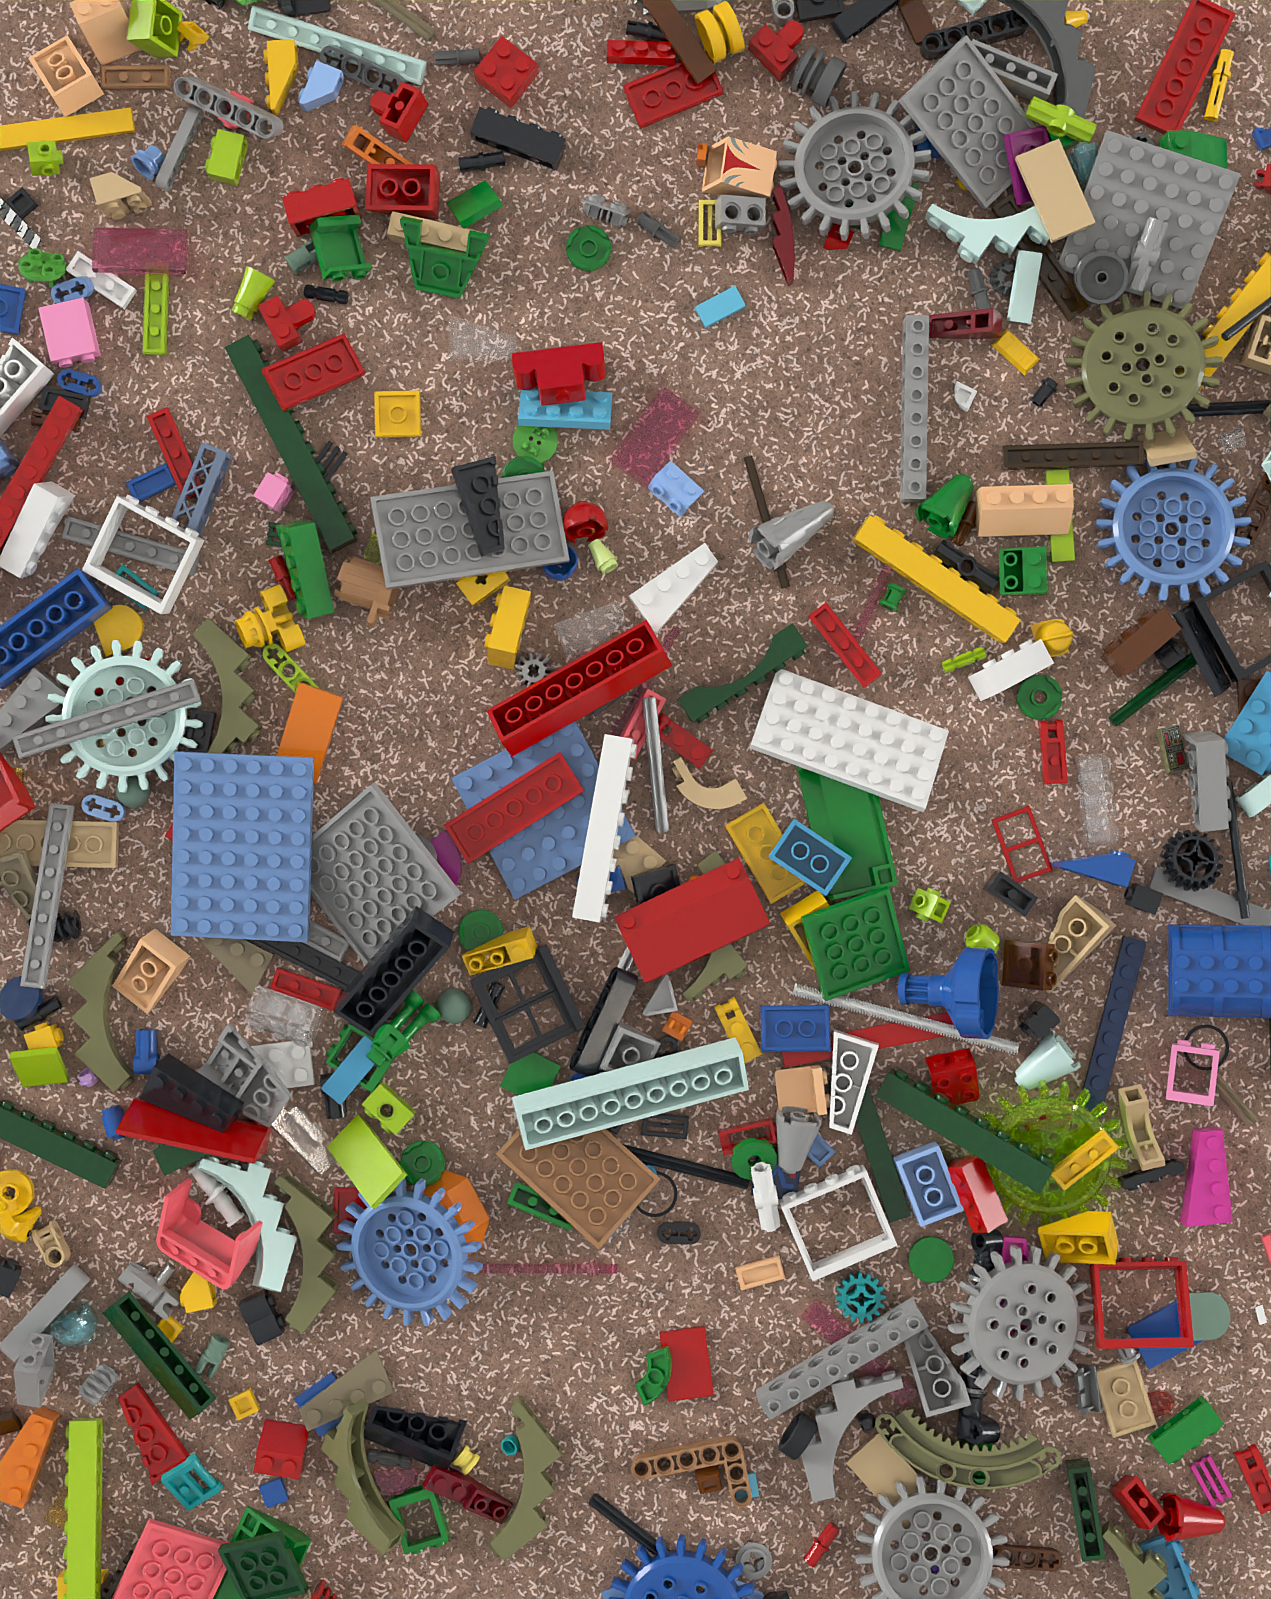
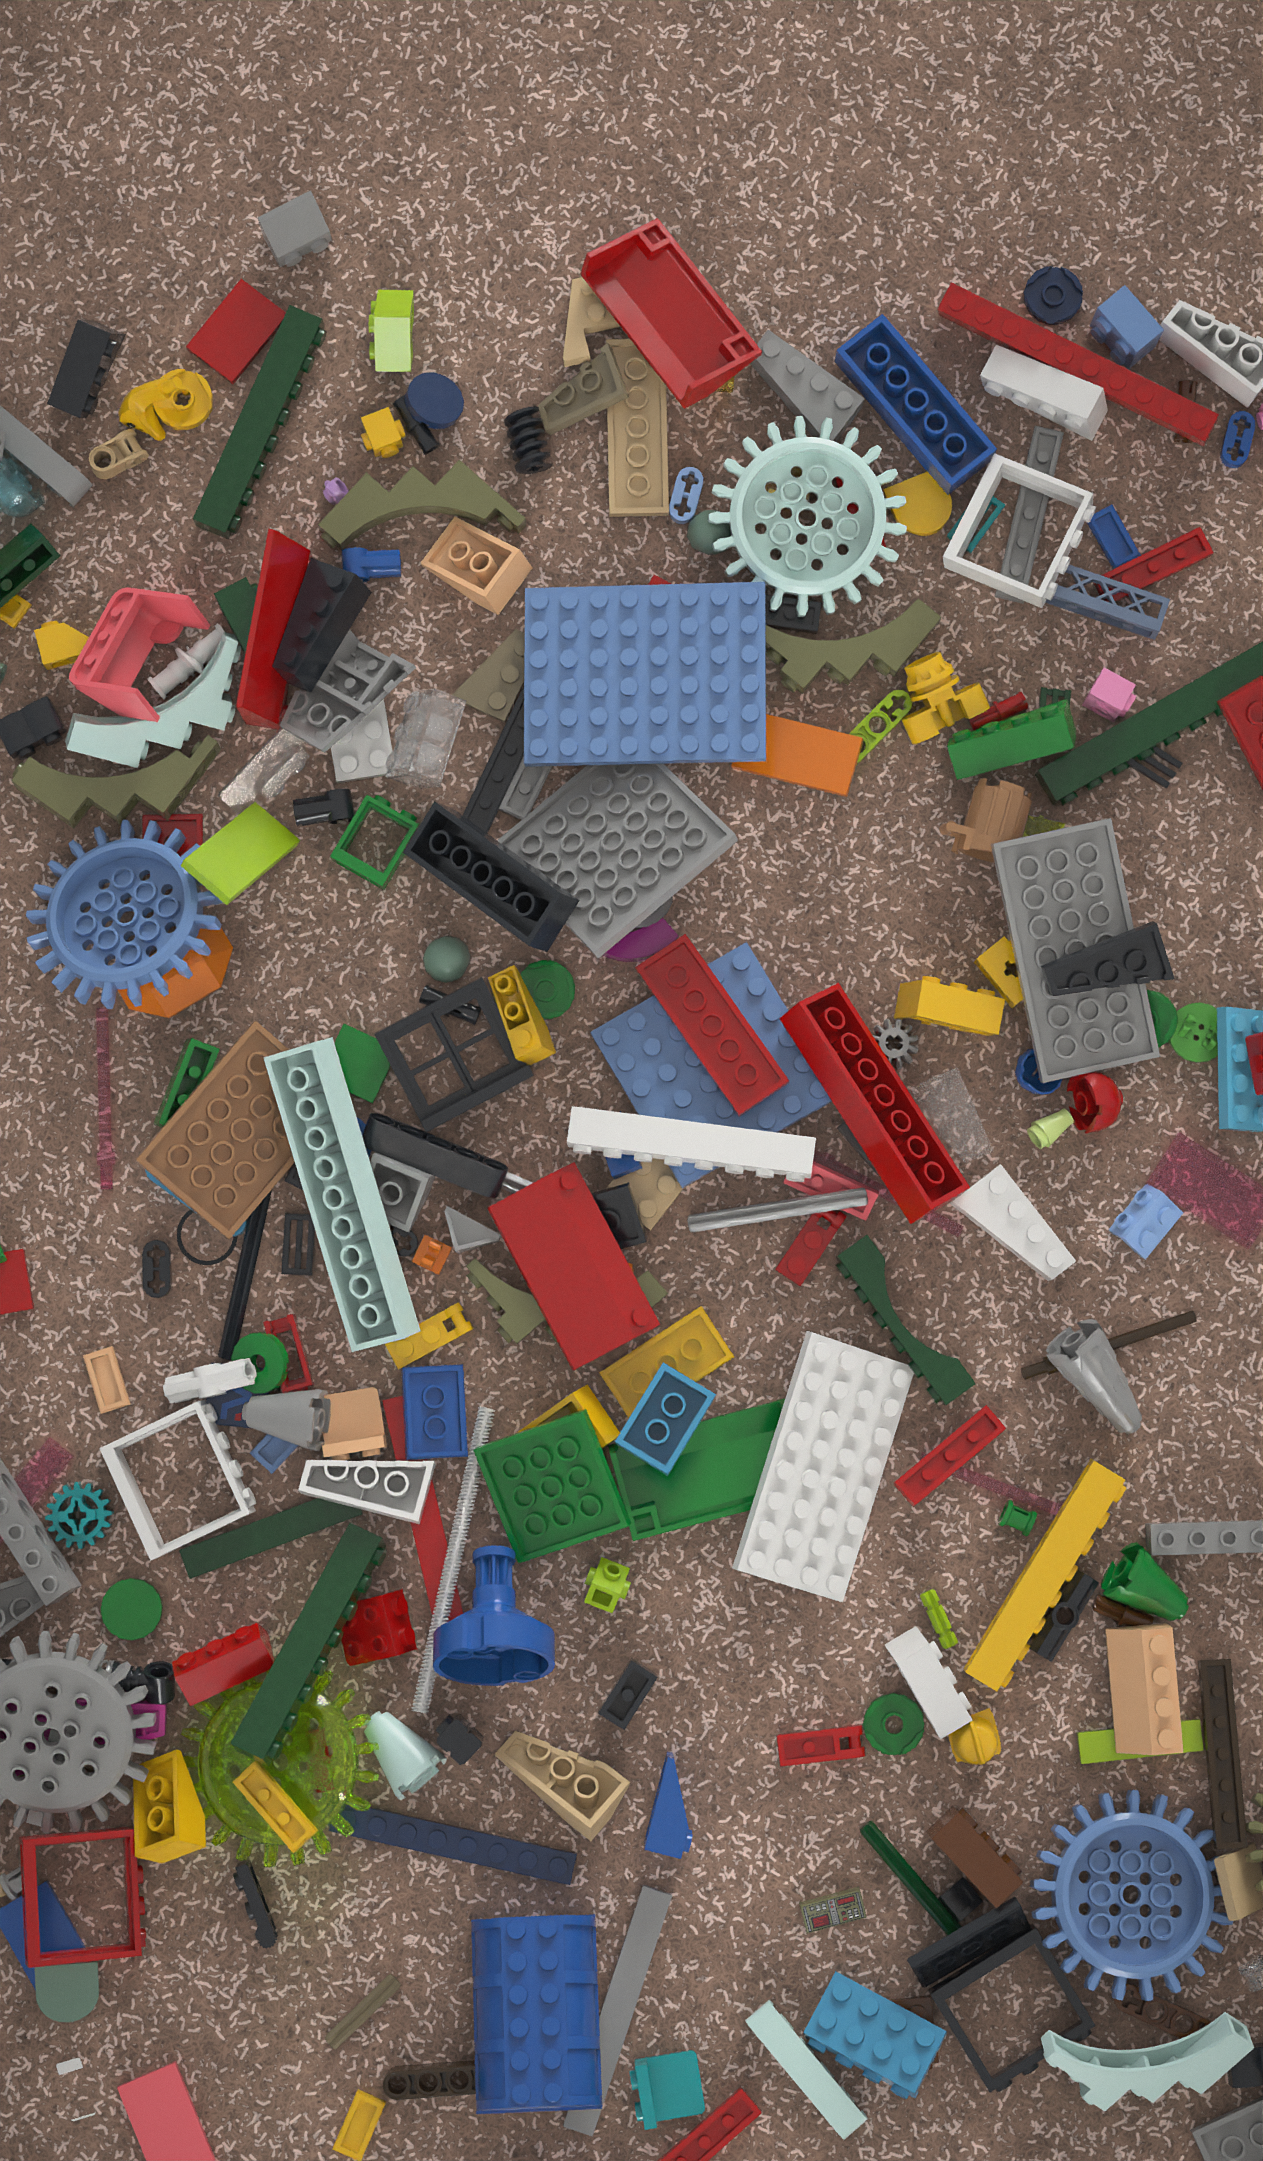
camera: 90 degrees right, 5 degrees down
(39, 1067) = (347, 429): lime tile -> none
(47, 896) = (570, 429): light grey tile -> none
(50, 395) = (1218, 403): black plate -> none
(106, 719) = (803, 494): light grey tile -> none
(111, 1120) = (282, 521): blue brick -> none
(152, 1288) = (64, 585): light grey piece -> none
(305, 989) = (461, 765): red tile -> none
(349, 1072) = (358, 829): dark azure sticker -> none
(385, 1095) = (305, 897): lime brick -> none
(389, 1041) = (396, 878): green piece -> none
(397, 414) = (1222, 851): yellow tile -> none
(423, 1161) = (242, 927): green tile -> none
(710, 798) = (736, 1289): tan arch -> none
(928, 1183) = (234, 1598): light blue brick -> none
(982, 937) = (568, 1659): lime head -> none
(1024, 571) = (1062, 1694): green slope -> none
(1029, 965) = (532, 1724): reddish brown plate -> none
(1038, 839) = (702, 1731): red window -> none
(1096, 799) = (759, 1806): clear brick -> none
(1138, 1129) = (320, 1883): tan arch -> none
(1143, 898) = (628, 1876): black brick -> none
(1186, 876) = (707, 1945): black gear -> none
(1189, 1096) = (363, 1949): bright pink window -> none
(1207, 1184) = (248, 1981): dark pink wedge -> none
(1209, 780) = (792, 1960): light grey wedge -> none
(1226, 1044) = (401, 1978): black piece -> none
(1242, 894) = (640, 2013): black bar -> none

